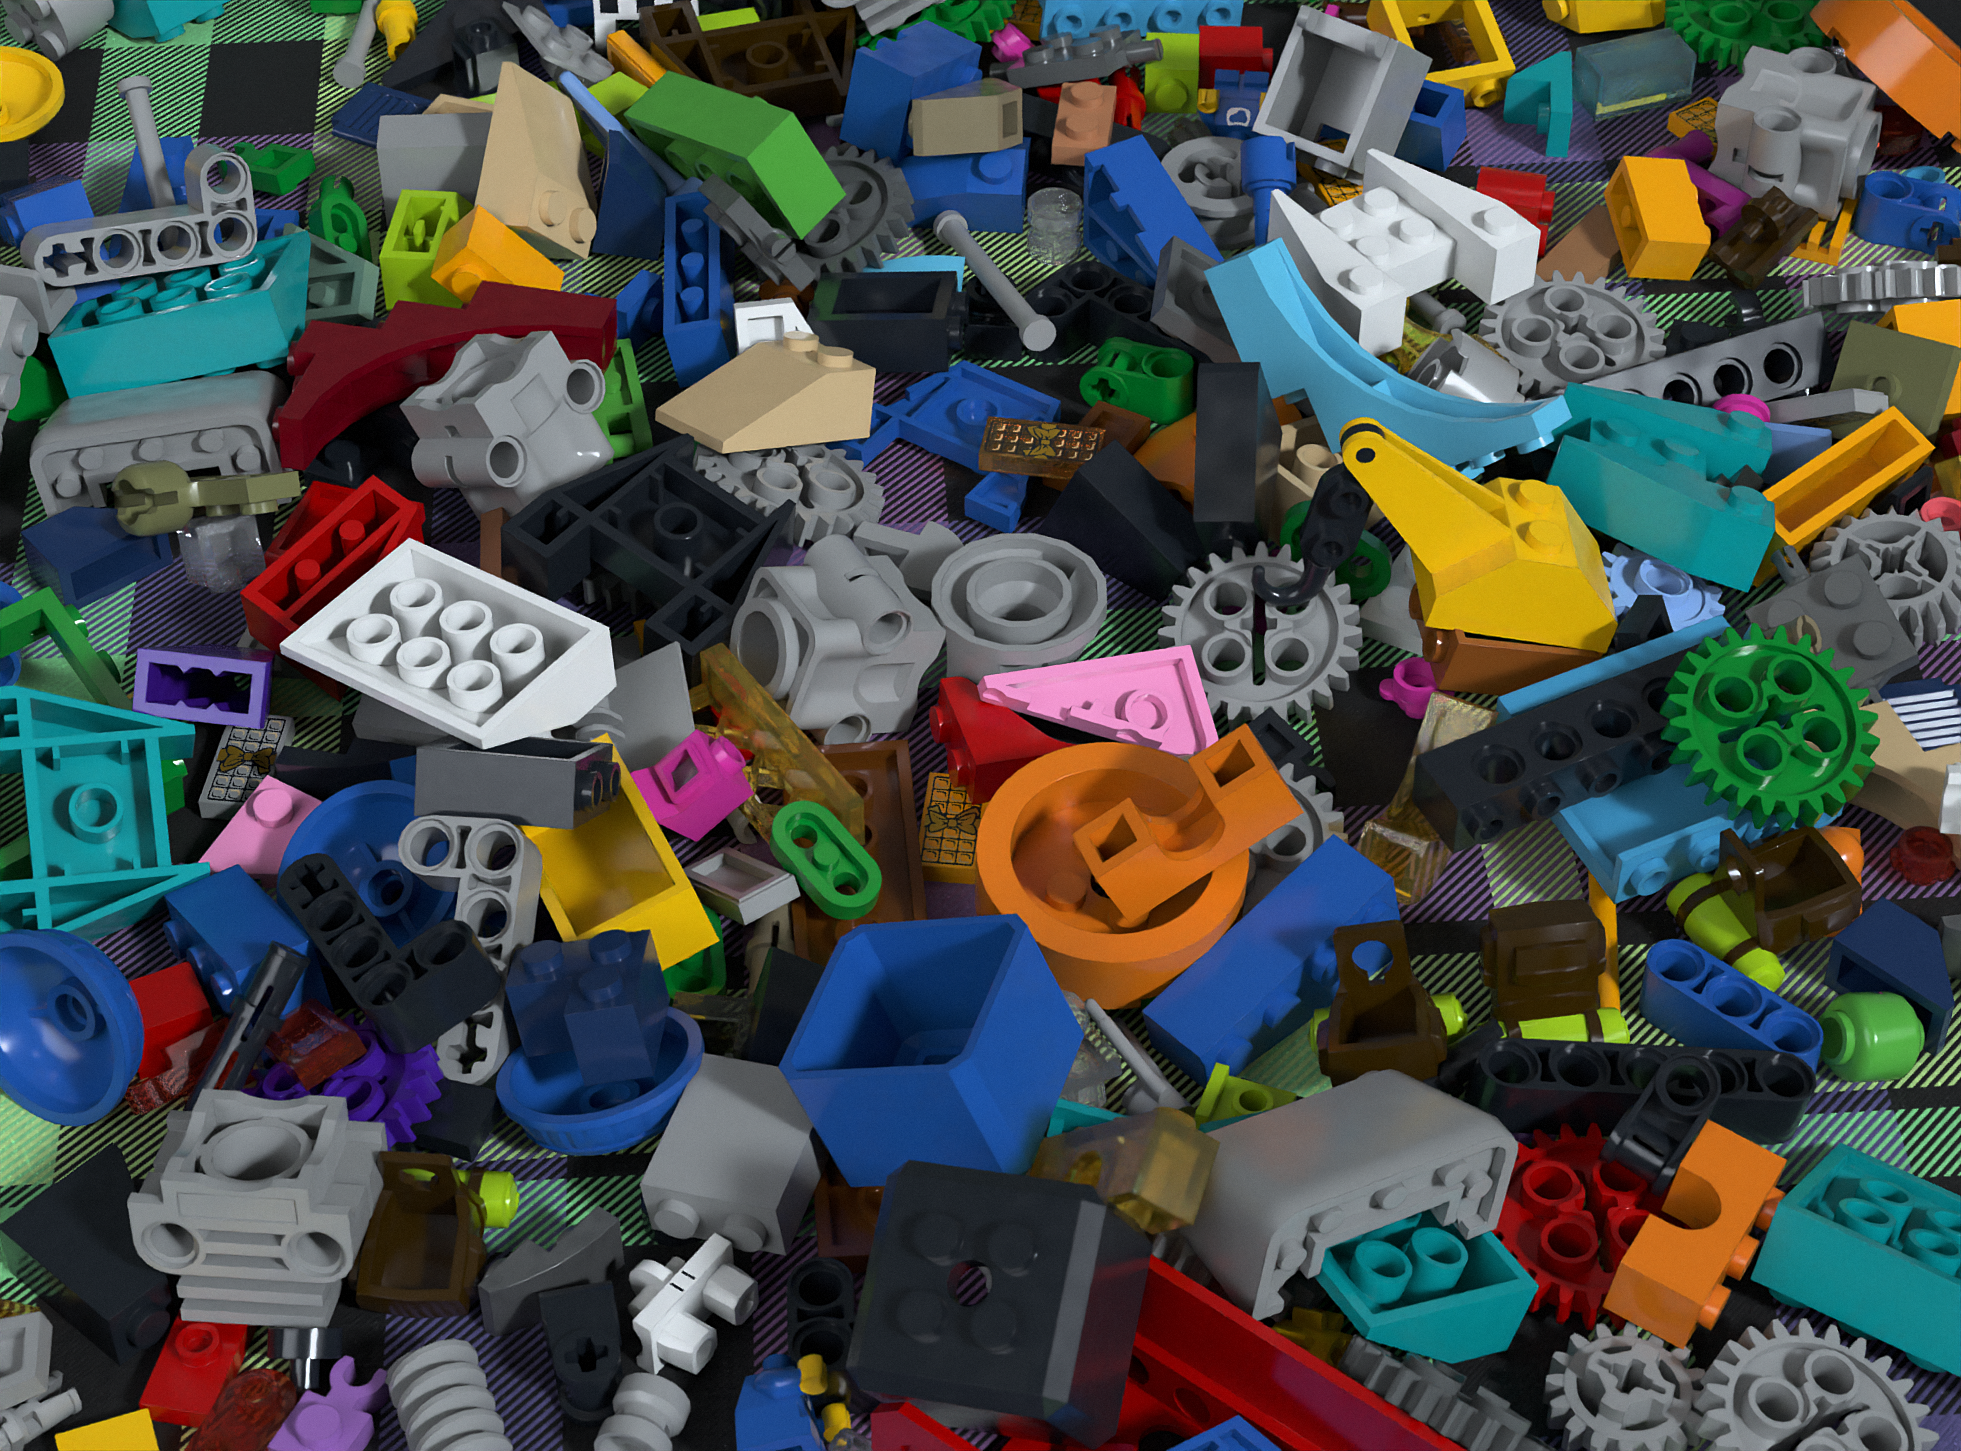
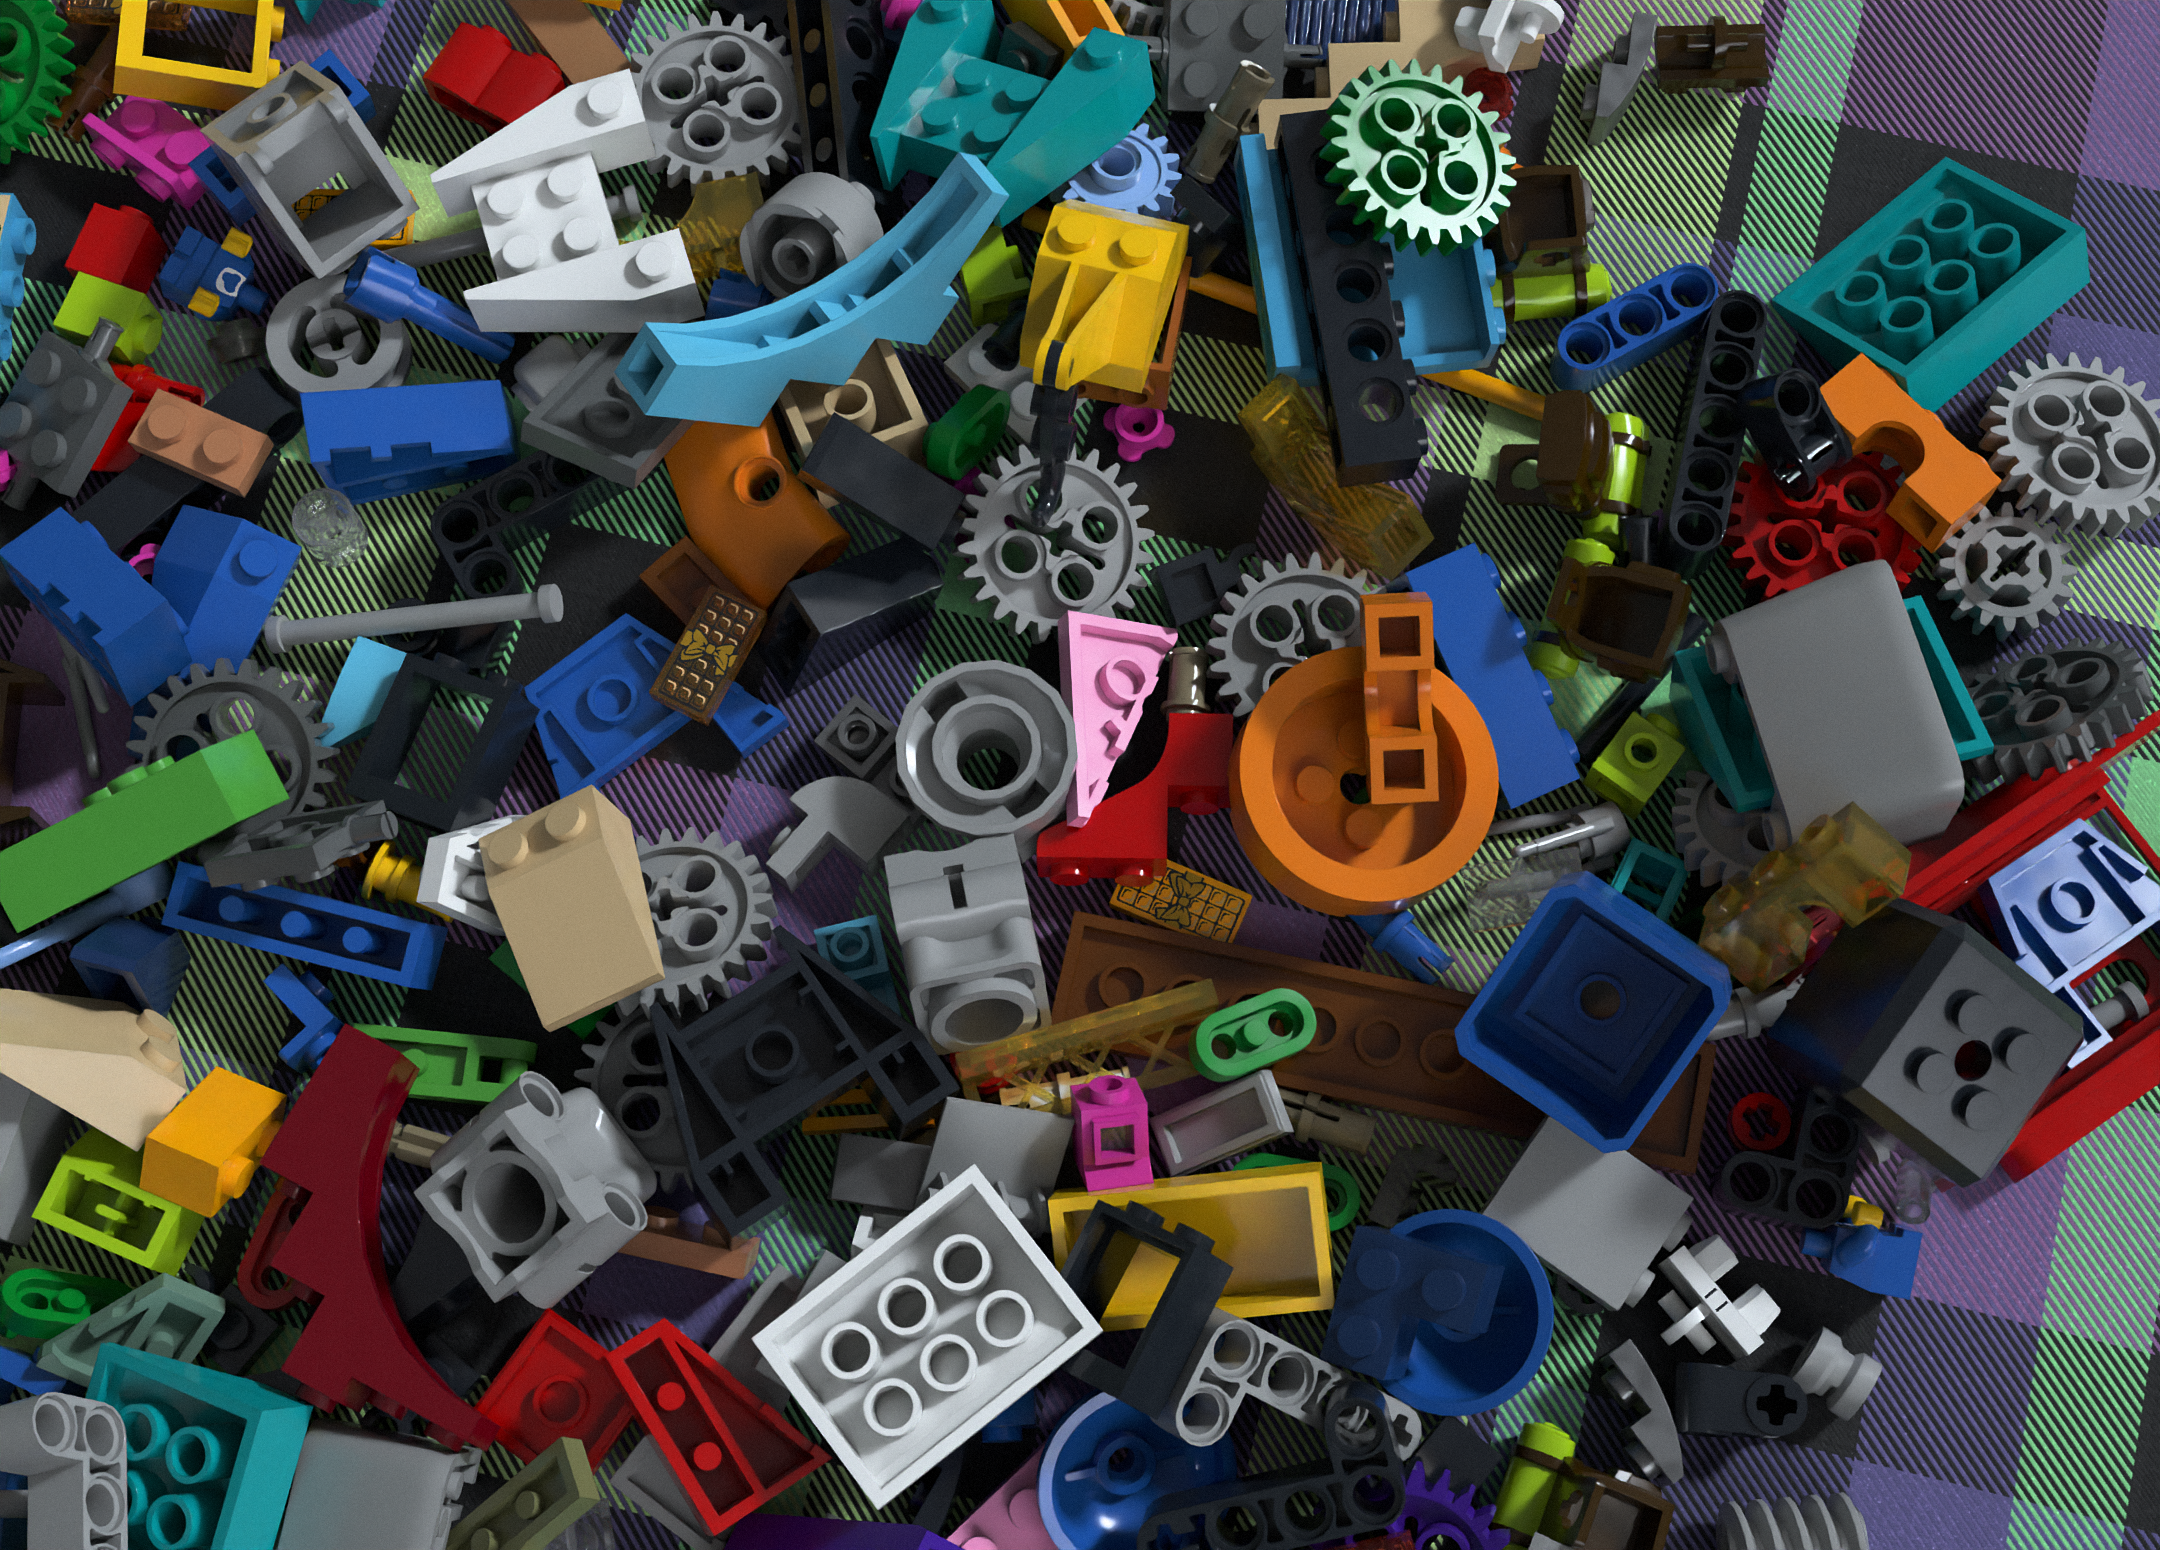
camera: 70 degrees left, 30 degrees up
(779, 1005) = (1434, 1118): black slope -> none
(967, 119) = (187, 557): dark tan slope -> none
(1146, 380) = (612, 529): green piece -> none
(1870, 1037) = (1686, 226): bright green head -> none
(1897, 955) = (1628, 171): dark blue slope -> none

